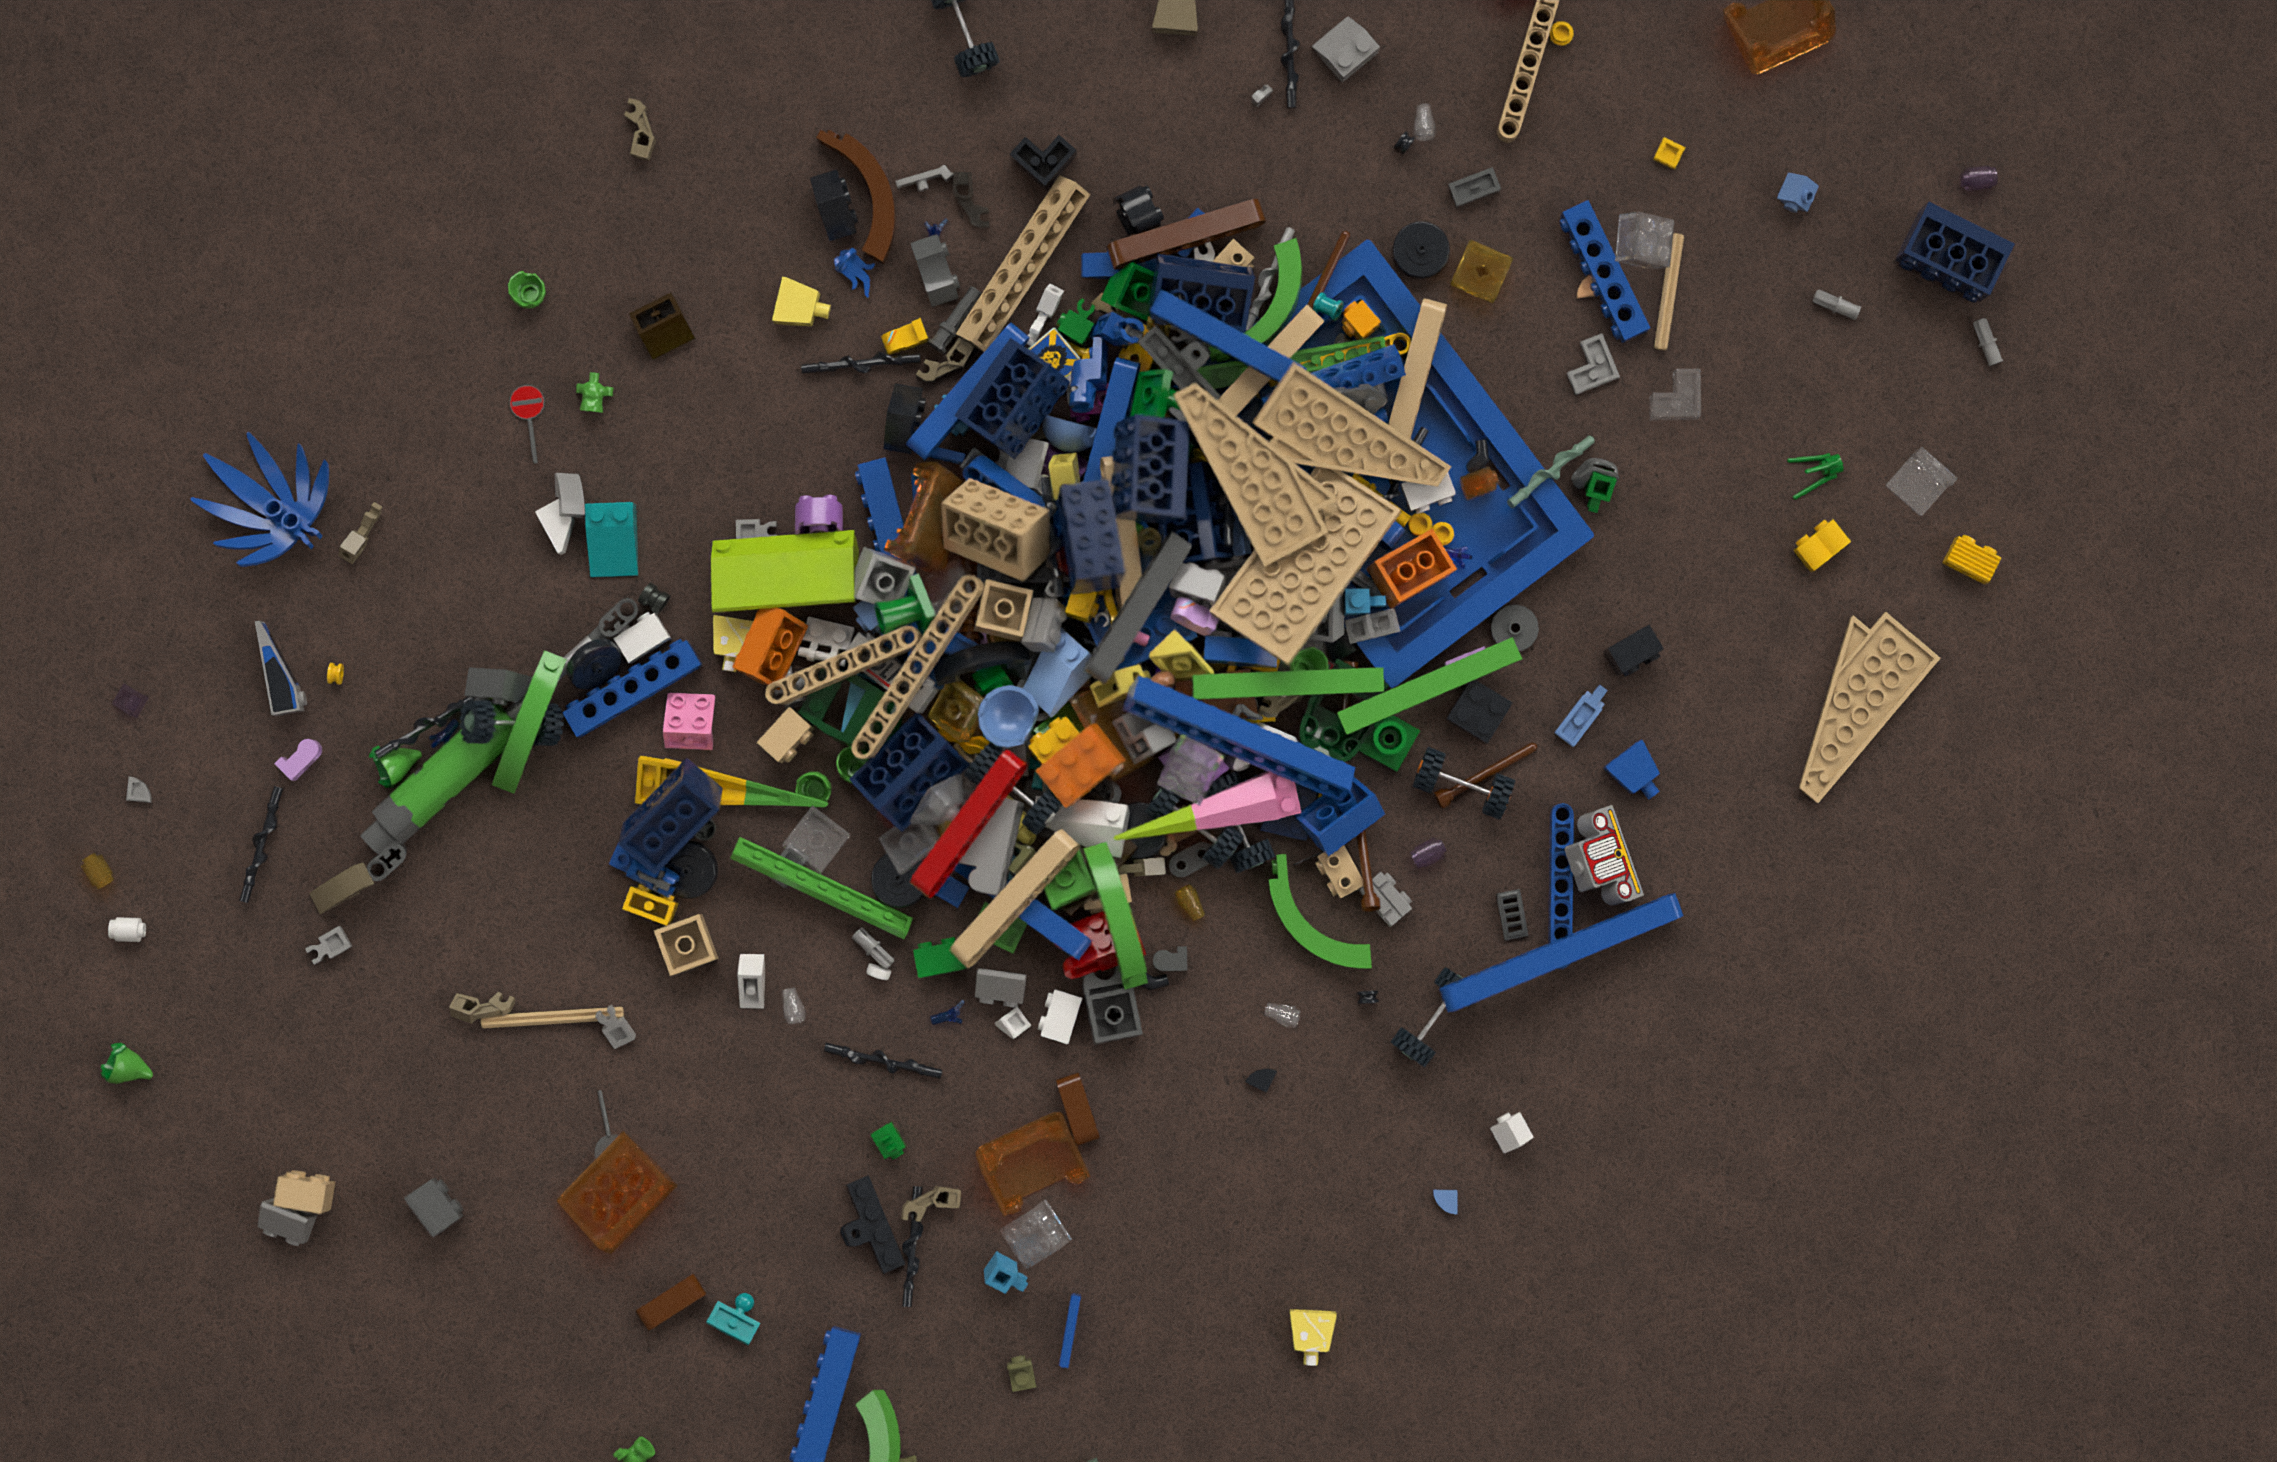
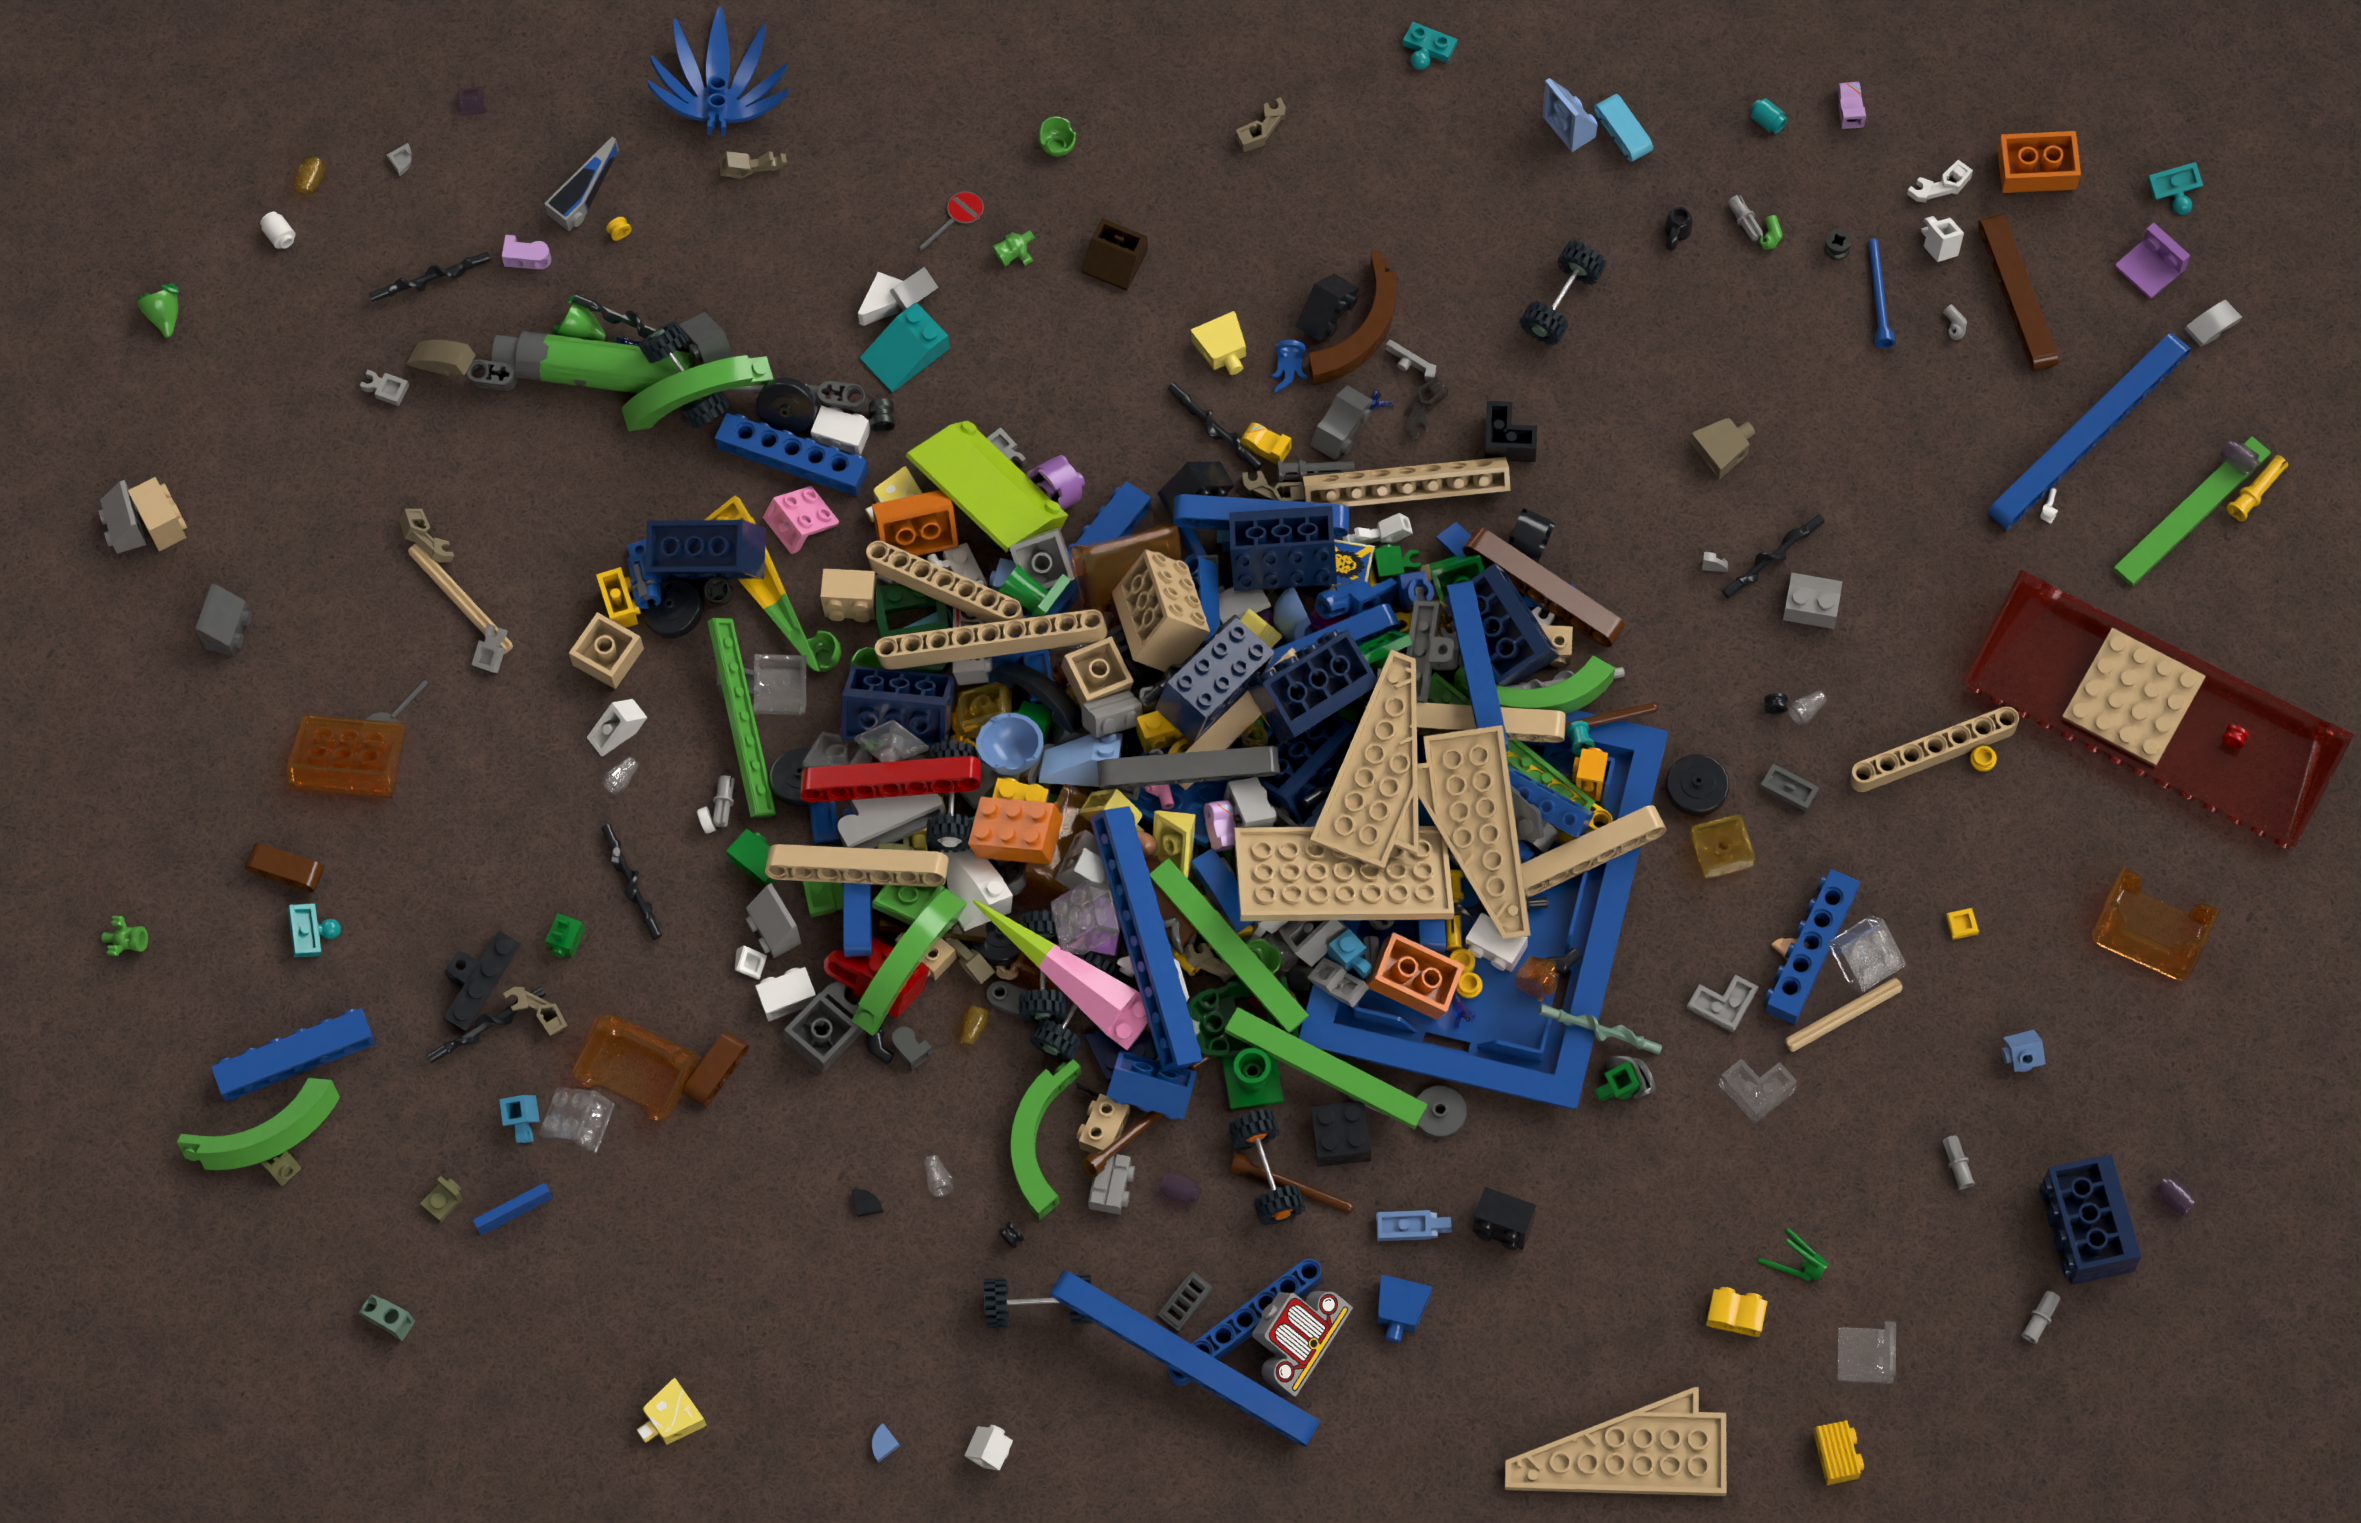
camera: 55 degrees right, 20 degrees down
(949, 1015) = (713, 905): clear blue bar -> none

